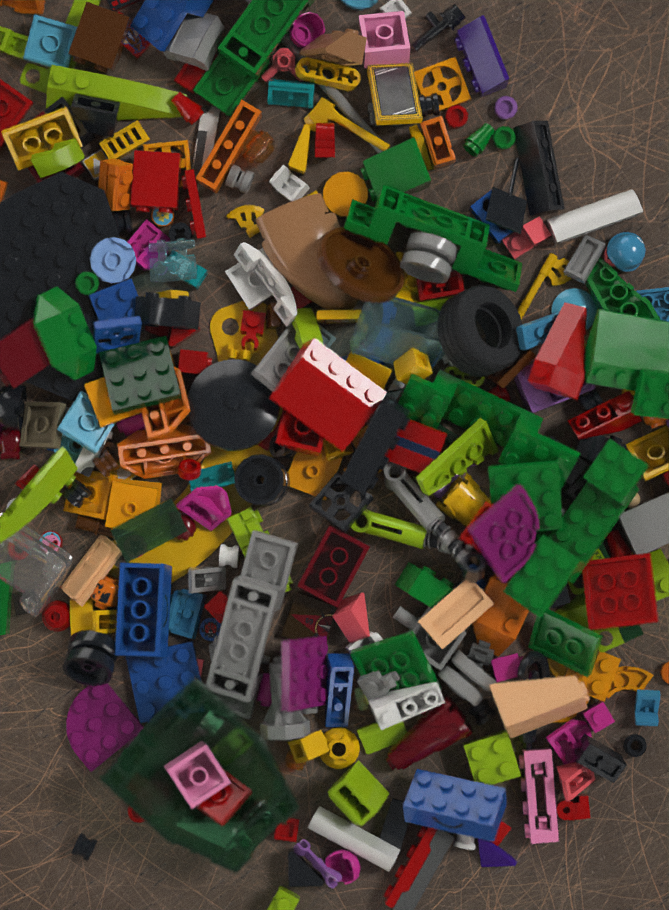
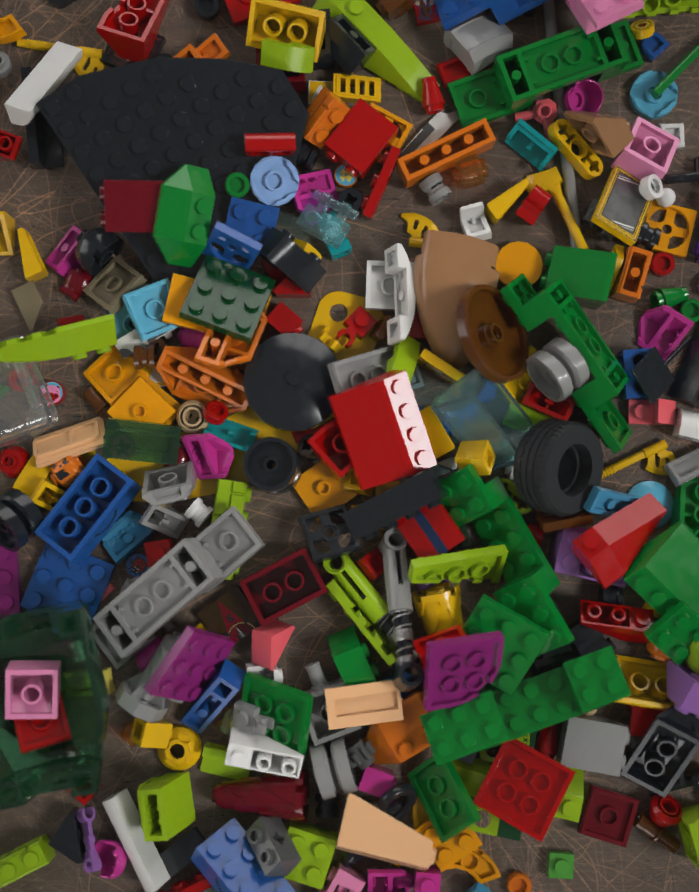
camera: 25 degrees right, 0 degrees up
(77, 493) = (102, 366): black wheel -> none
(91, 235) = (269, 144): none -> red brick
(175, 492) = (189, 424): none -> tan cone
(192, 547) = (169, 484): none -> light grey slope
(390, 504) = (372, 564): none -> red plate
(407, 65) = (652, 188): none -> white plate
(423, 555) = (372, 632): none -> lime wing
(460, 766) = (273, 846): none -> dark grey brick
(491, 168) = (662, 329): none -> dark pink slope

